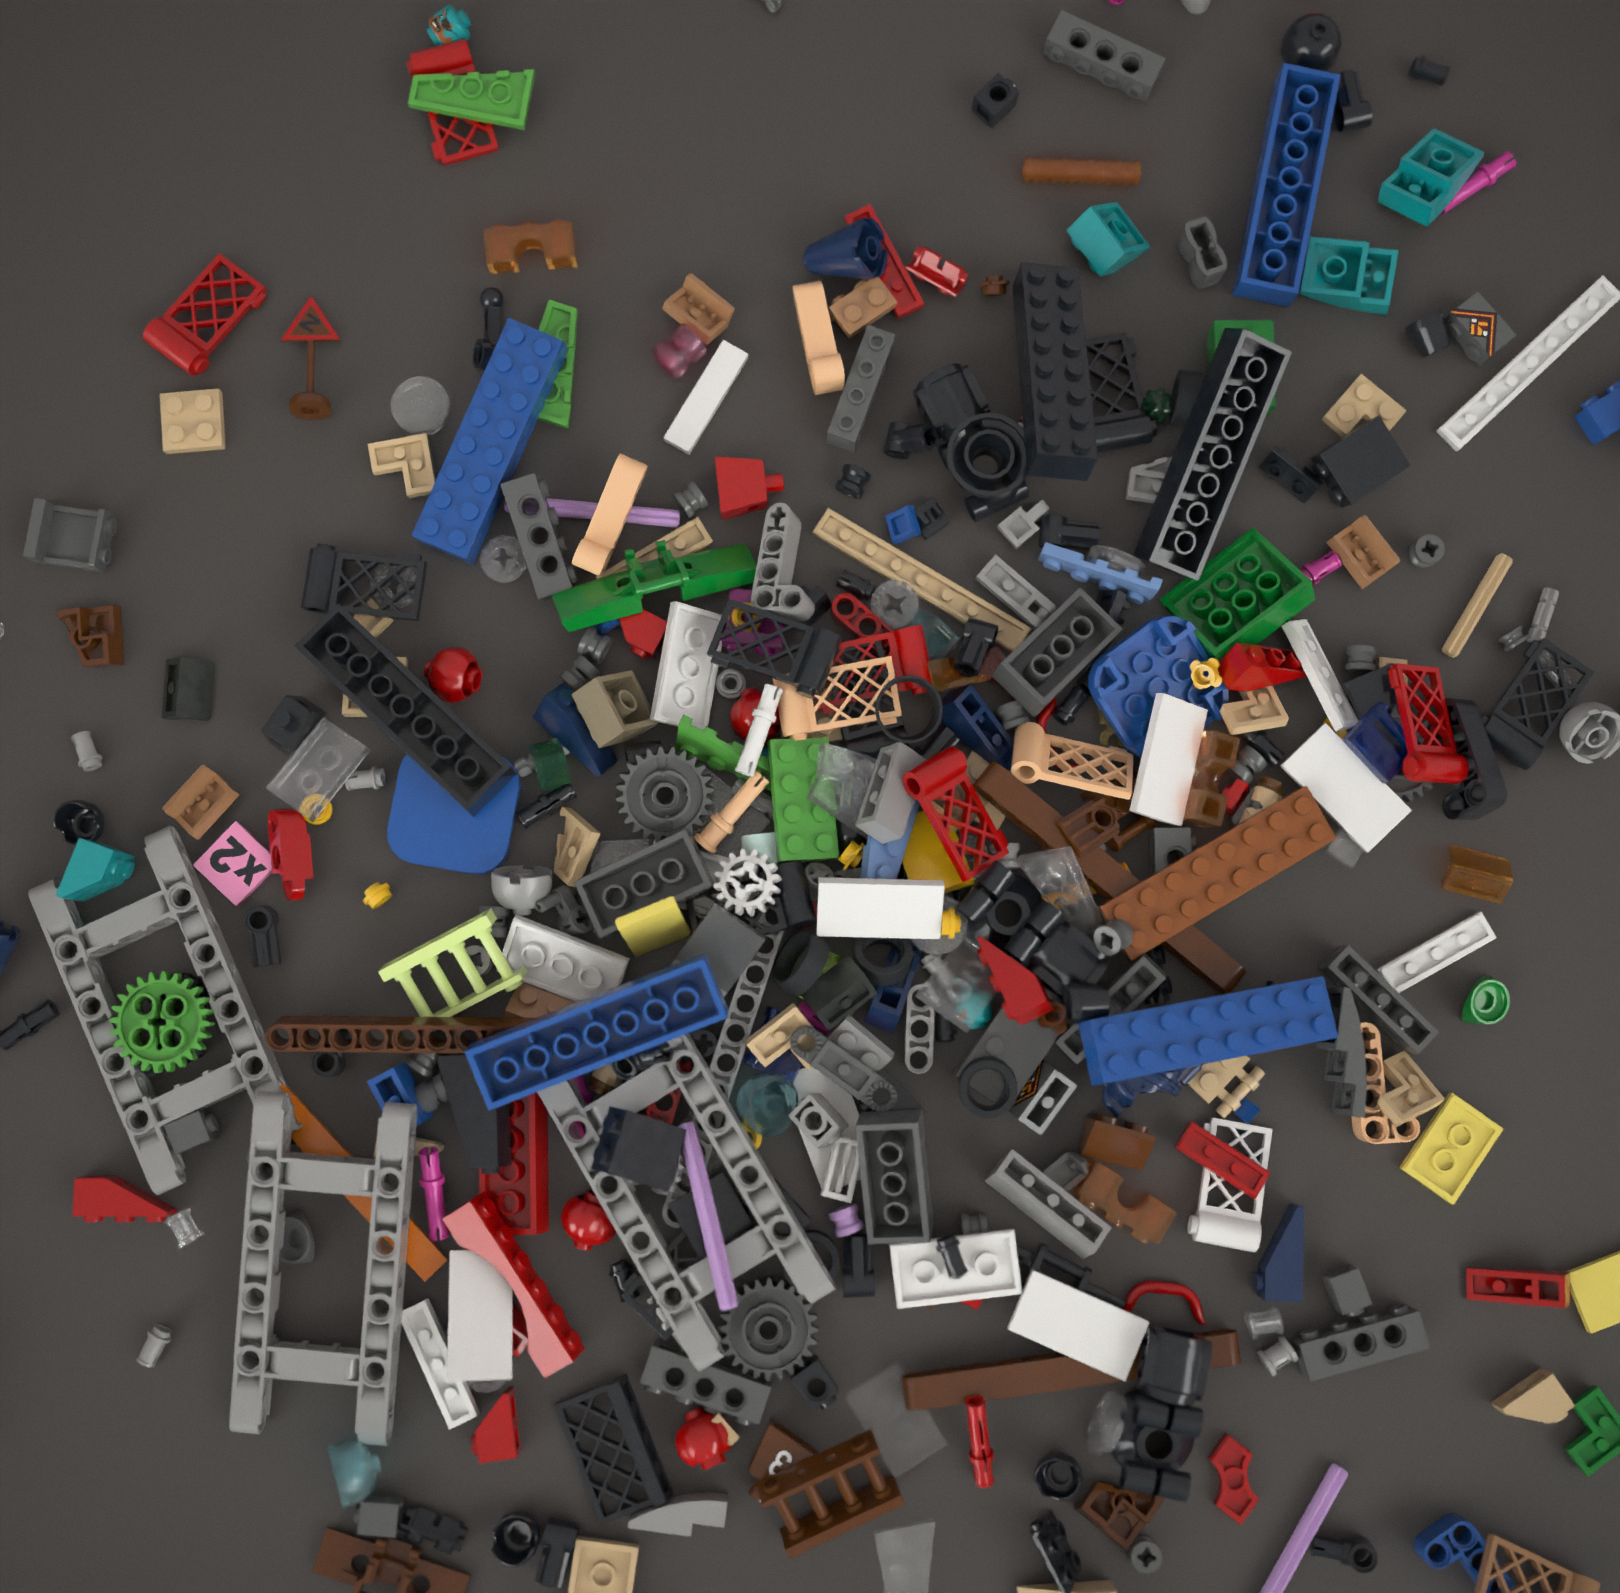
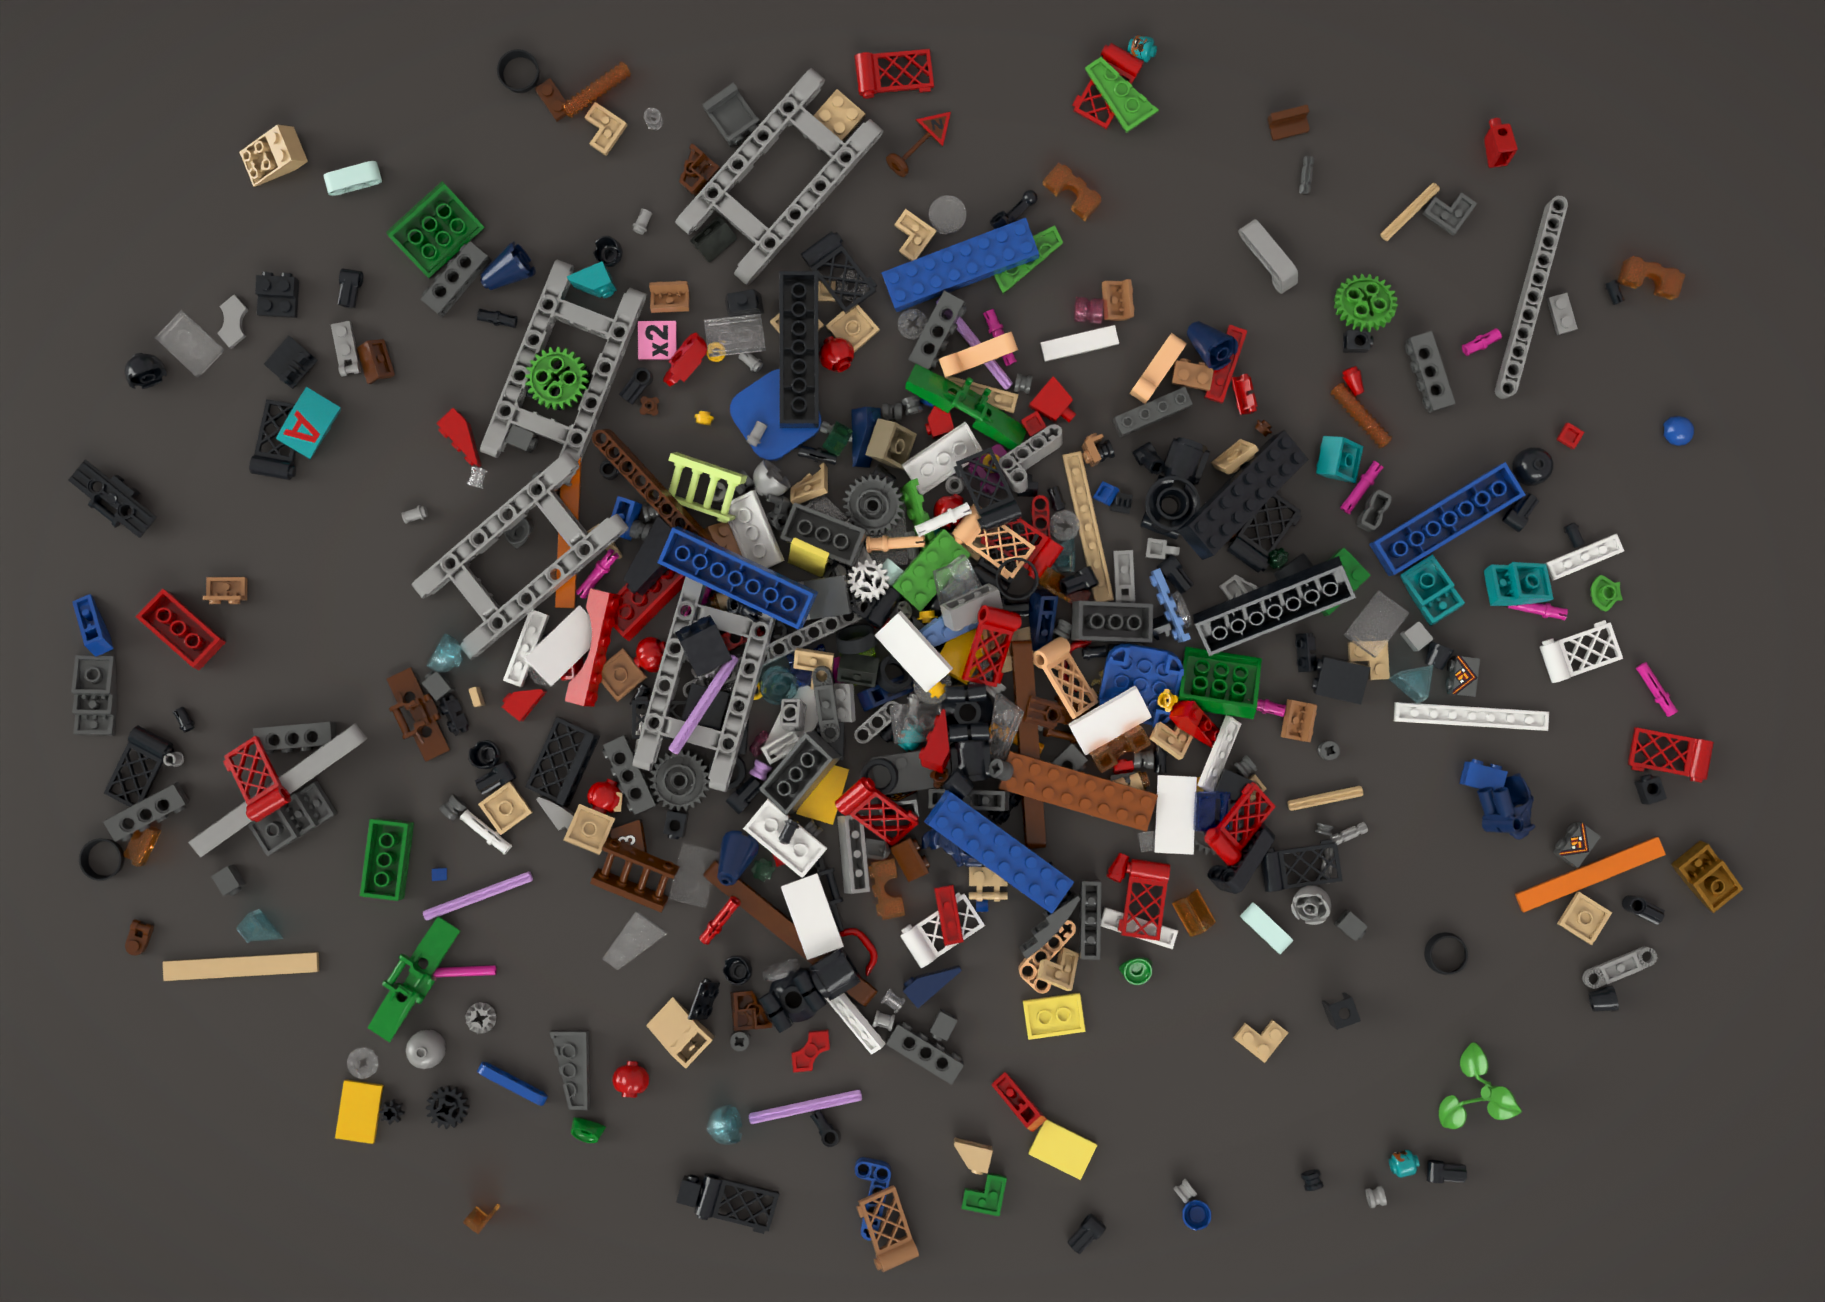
camera: 50 degrees right, 5 degrees up
(131, 550) = (806, 202): none -> light grey beam
(310, 944) = (653, 410): none -> reddish brown plate
(438, 1480) = (476, 696): none -> tan tile
(442, 626) = (854, 327): none -> tan plate
(454, 850) = (756, 434): none -> light grey pin
(579, 1279) = (621, 675): none -> medium nougat tile
(601, 471) = (996, 330): none -> dark pink pin
(724, 1498) = (589, 829): none -> tan plate
(747, 530) = (1033, 423): none -> red plate
(810, 1187) = (758, 741): none -> clear pink arm
(812, 101) = (1270, 255): none -> light grey beam
(838, 494) = (1091, 453): none -> medium nougat bracket
(922, 1350) = (735, 856): none -> dark blue cone
(951, 1175) = (821, 802): none -> yellow tile
(962, 51) = (1365, 302): none -> bright green gear
(966, 1330) = (762, 869): none -> clear green plant
(991, 1137) = (860, 795): none -> red piece
(998, 344) = (1235, 456): none -> tan plate
(1034, 143) = (1353, 379): none -> red cone
(1159, 232) = (1365, 482): none -> dark pink pin
(1256, 1391) = (857, 1023): none -> white plate
(1332, 367) = (1376, 624): none -> clear tile
(1345, 911) = (1118, 868): none -> red cone
(1388, 338) = (1416, 636): none -> light grey panel
(1391, 878) = (1145, 873): none -> red piece
(1440, 385) = (1414, 682): none -> clear light blue slope
(1463, 82) = (1584, 557): none -> white tile
(1523, 97) = (1605, 593): none -> bright green animal
(1555, 211) = (1557, 658): none -> white piece
(1569, 808) = (1266, 928): none -> light aqua beam

